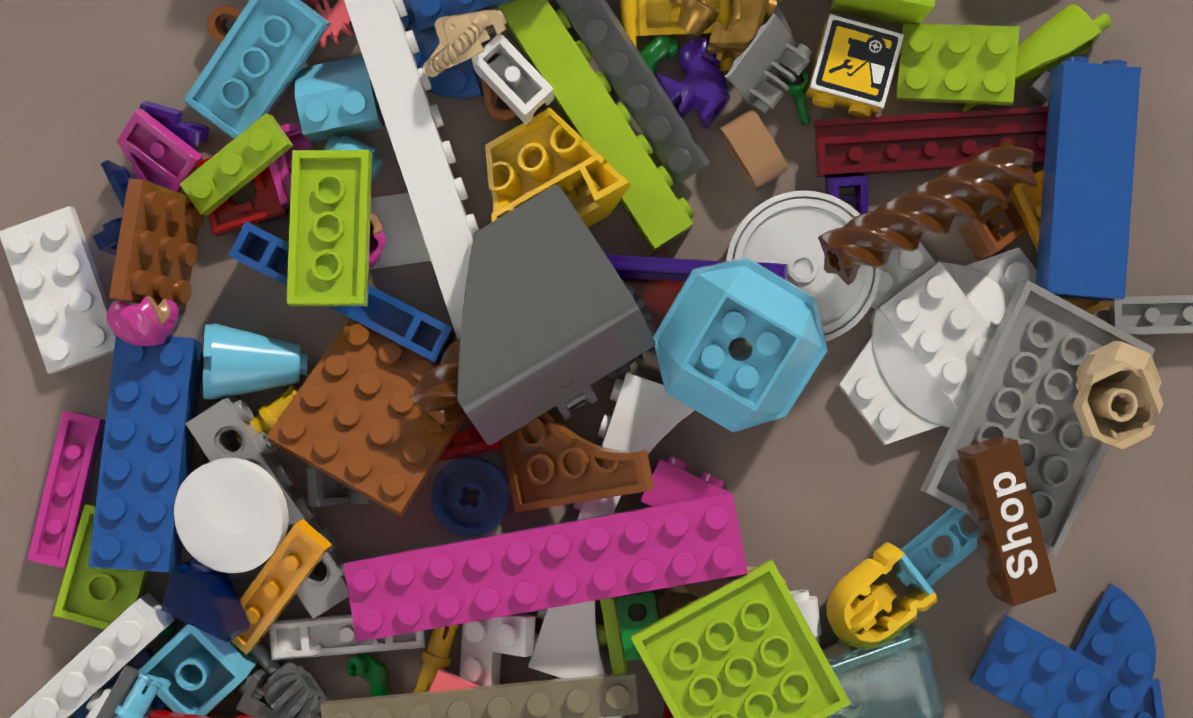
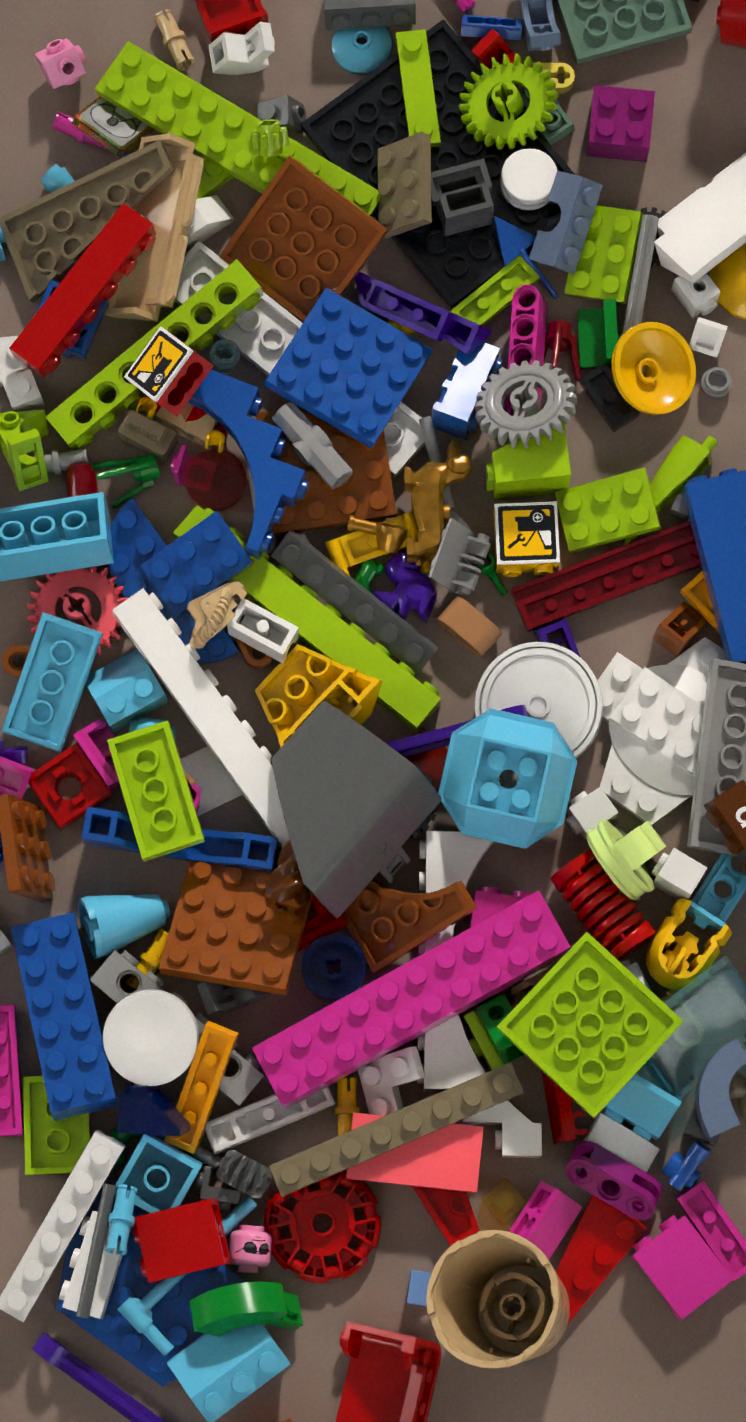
camera: 15 degrees left, 10 degrees down
(143, 323) = (34, 908): dark pink hair -> none
(236, 164) = (63, 766): lime plate -> none
(372, 671) = (295, 1138): green arm -> none
(807, 499) = (595, 915): none -> red piece
(821, 409) = (589, 810): none -> white brick
(847, 476) = (624, 855): none -> yellowish green piece
(898, 517) = (677, 874): none -> white brick
(926, 208) = (617, 627): reddish brown piece -> none

